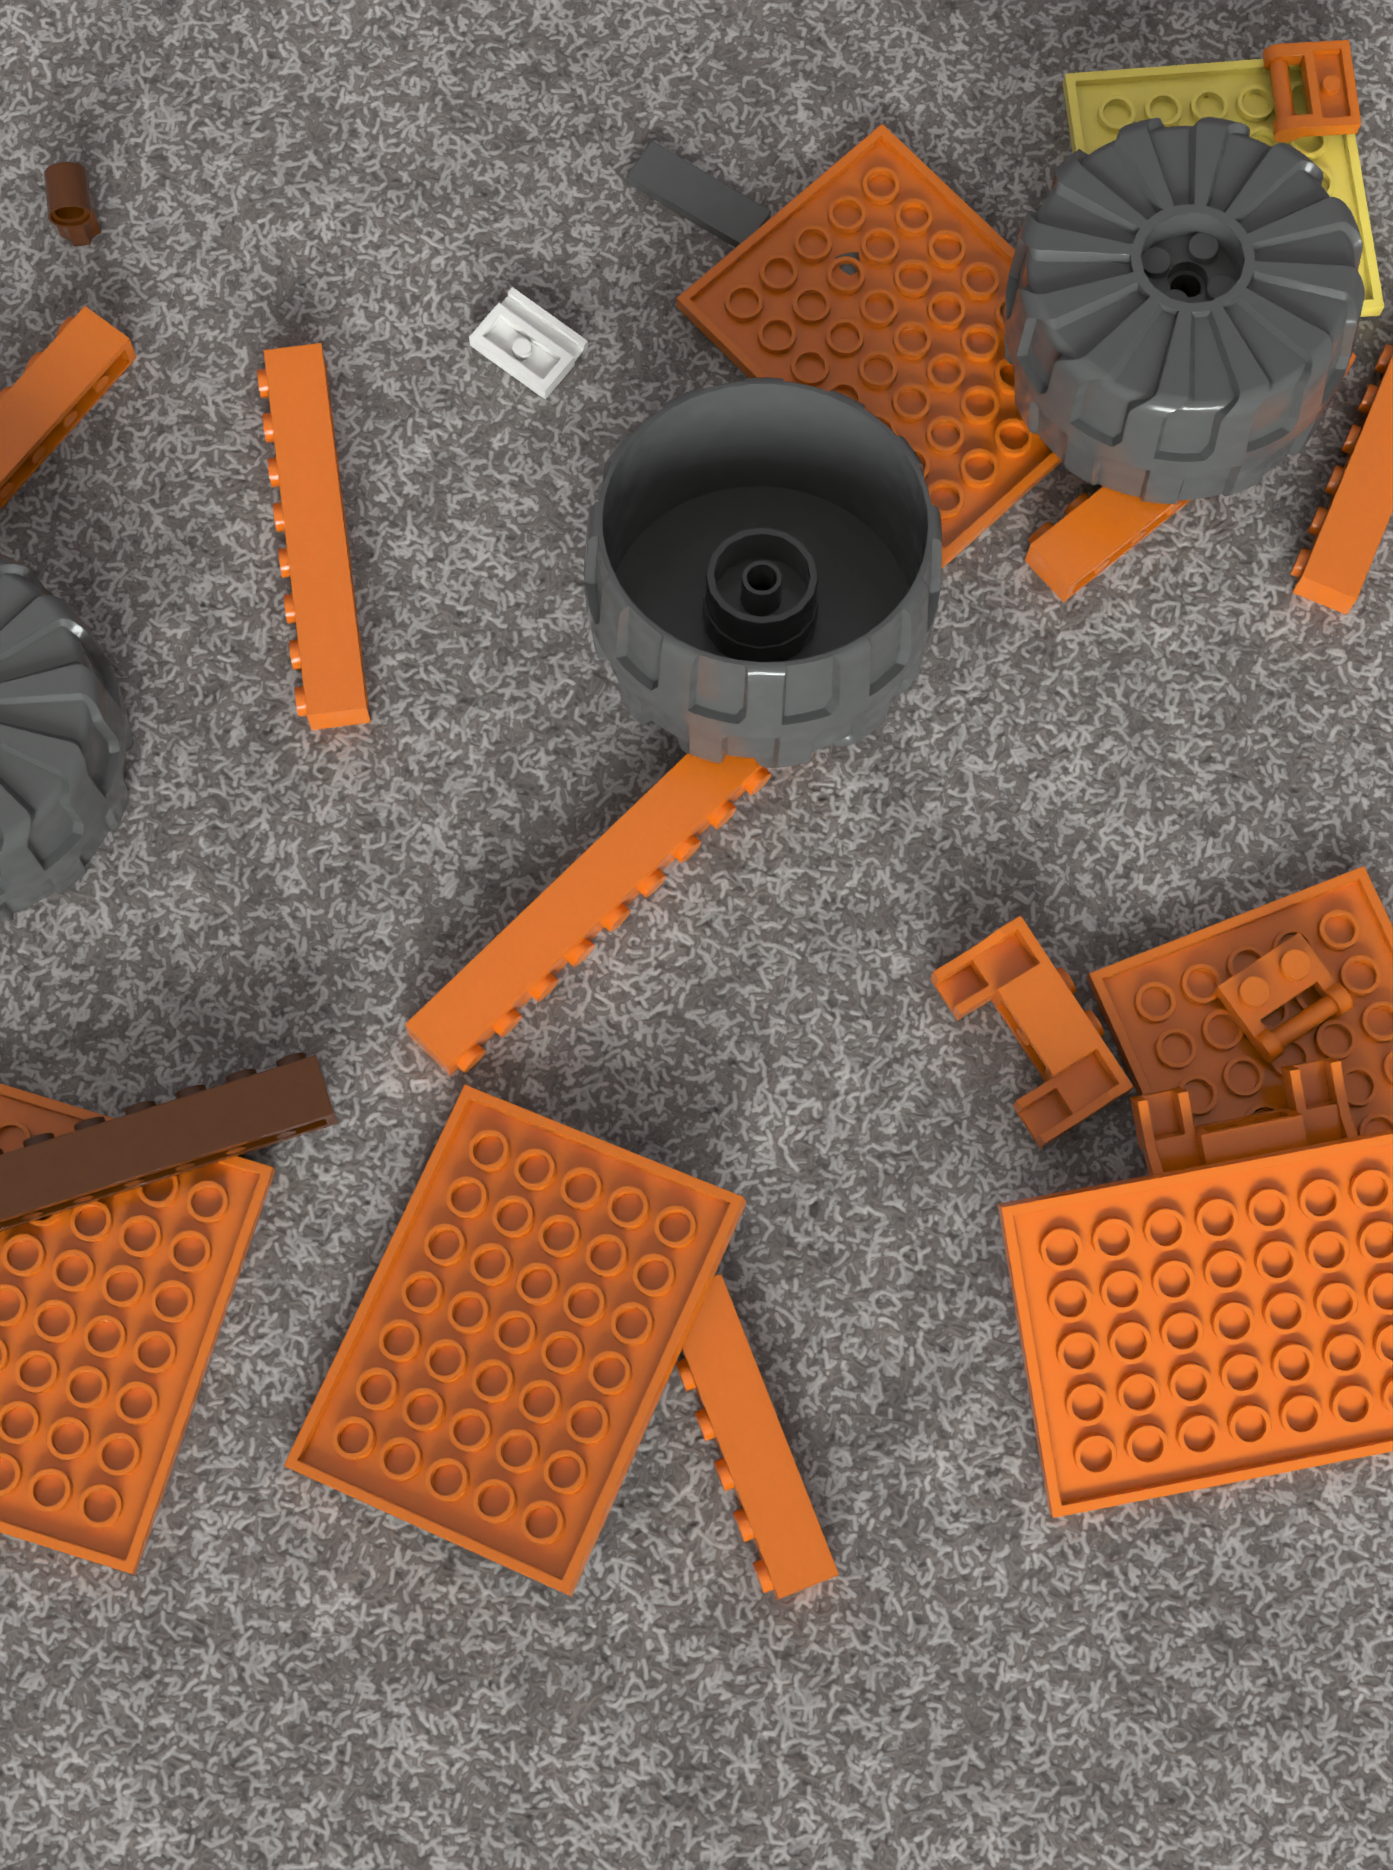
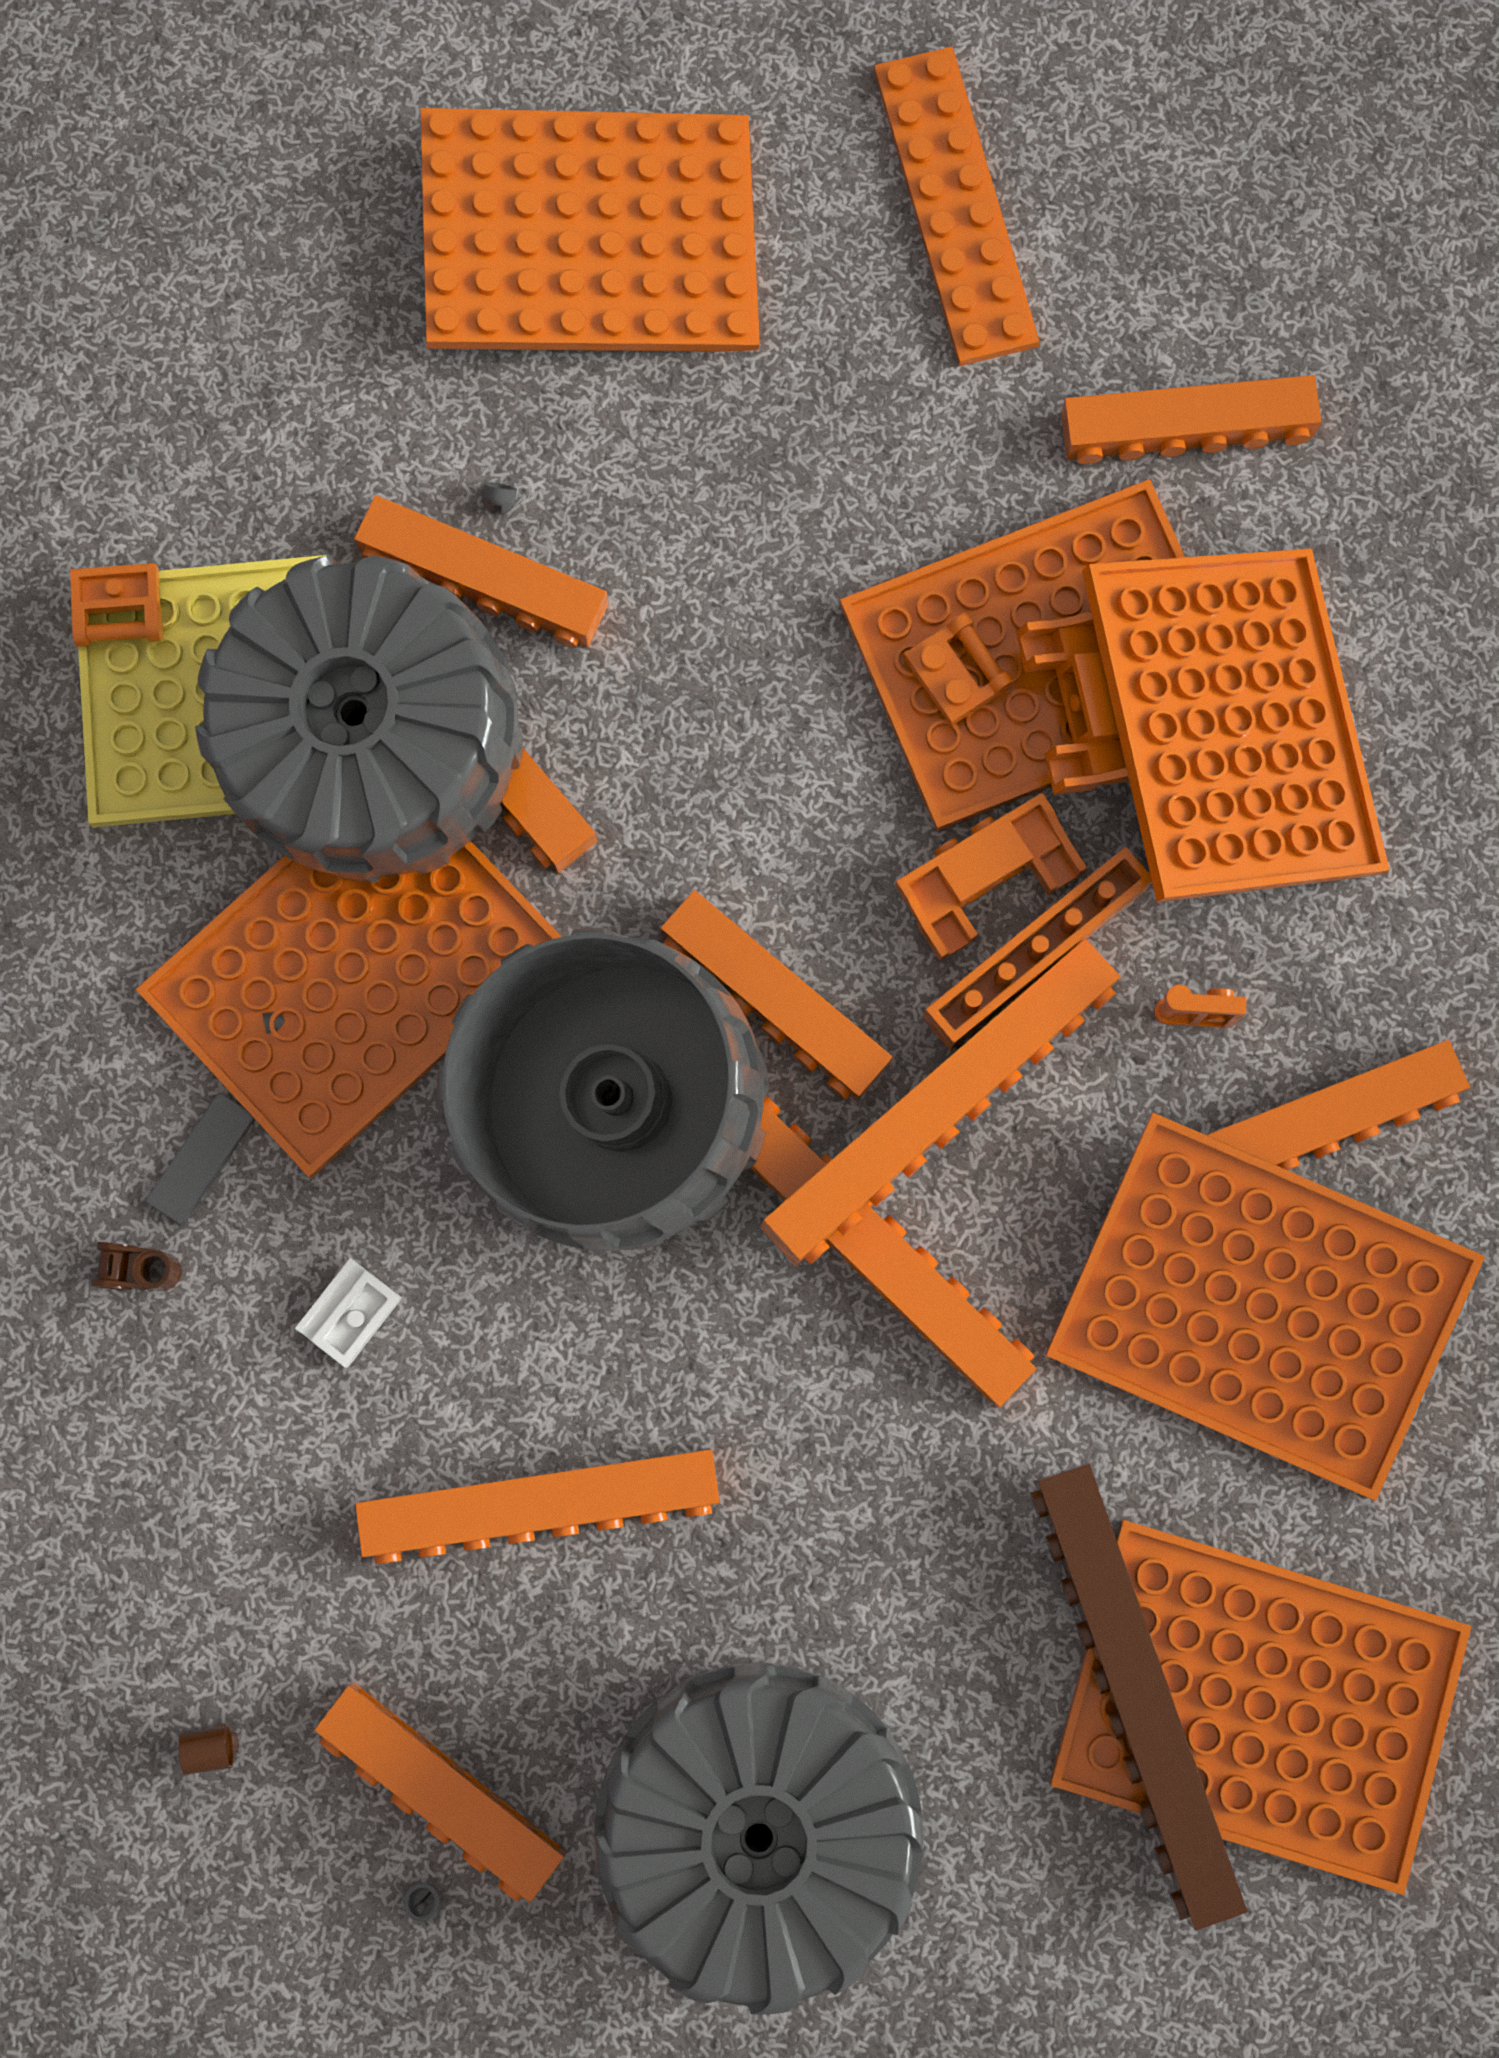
camera: 85 degrees left, 5 degrees up
(579, 128) = (129, 1266): none -> reddish brown piece
(760, 965) = (939, 1103): none -> orange brick
(874, 1283) = (1215, 1009): none -> orange plate
(883, 788) = (777, 998): none -> orange brick
(942, 1078) = (1037, 948): none -> orange brick

